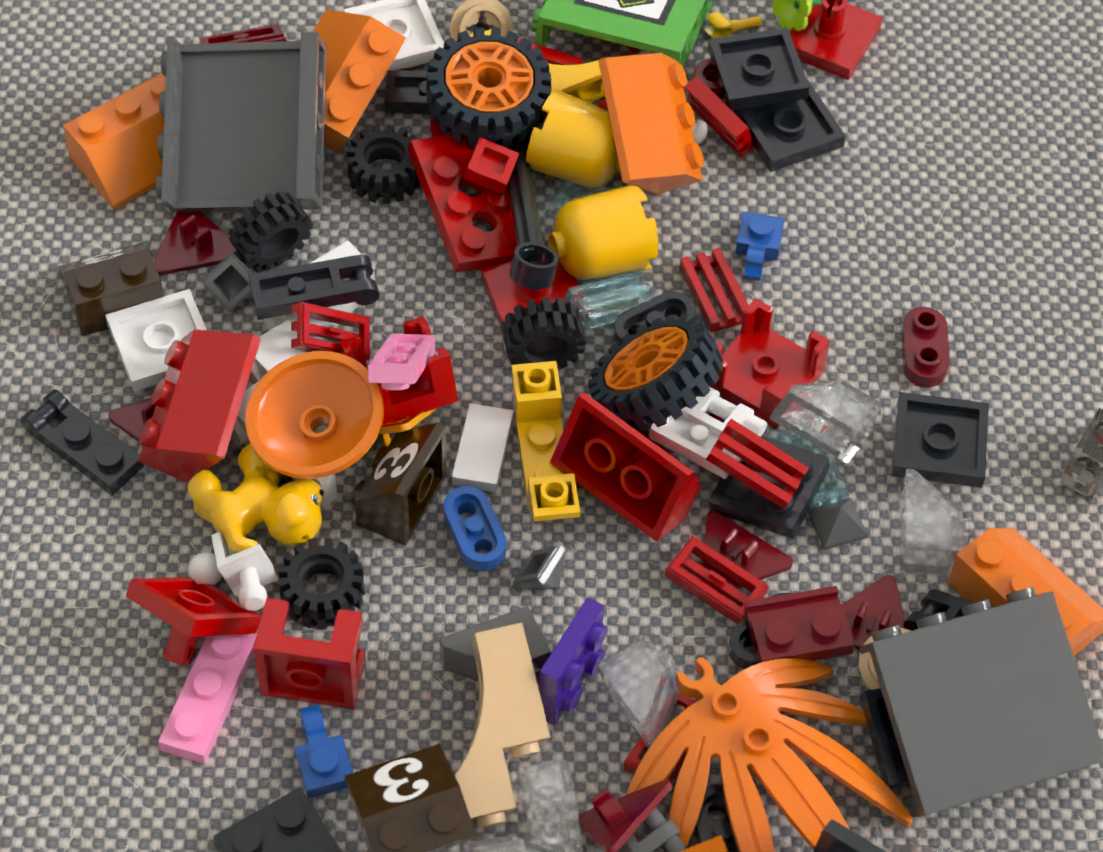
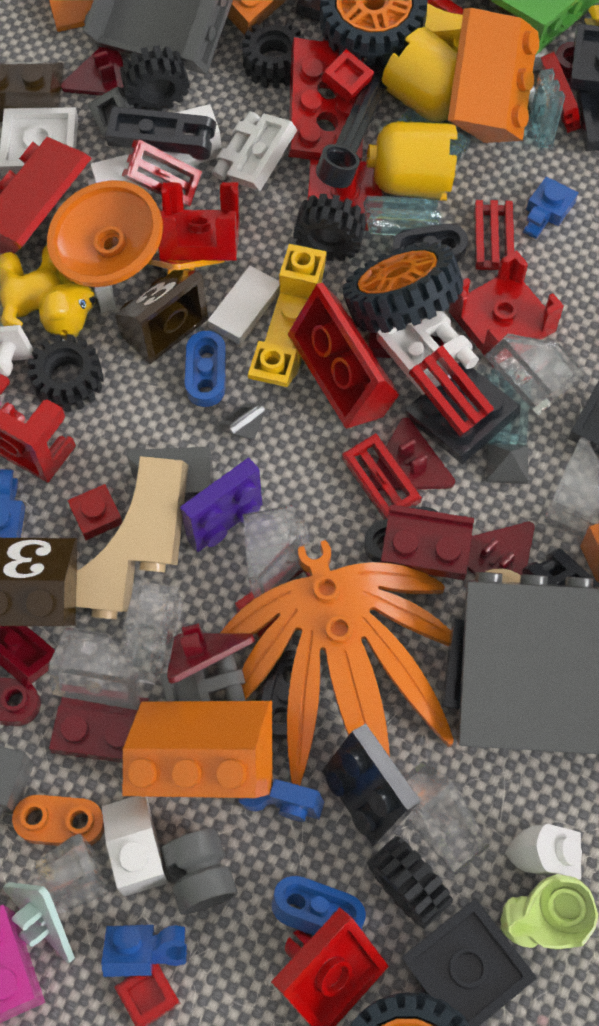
camera: 25 degrees right, 10 degrees up
(401, 360) = (192, 210): bright pink plate -> none
(425, 719) = (95, 512): none -> red plate
(428, 276) = (254, 150): none -> white plate
(717, 139) = (546, 108): none -> clear light blue tile

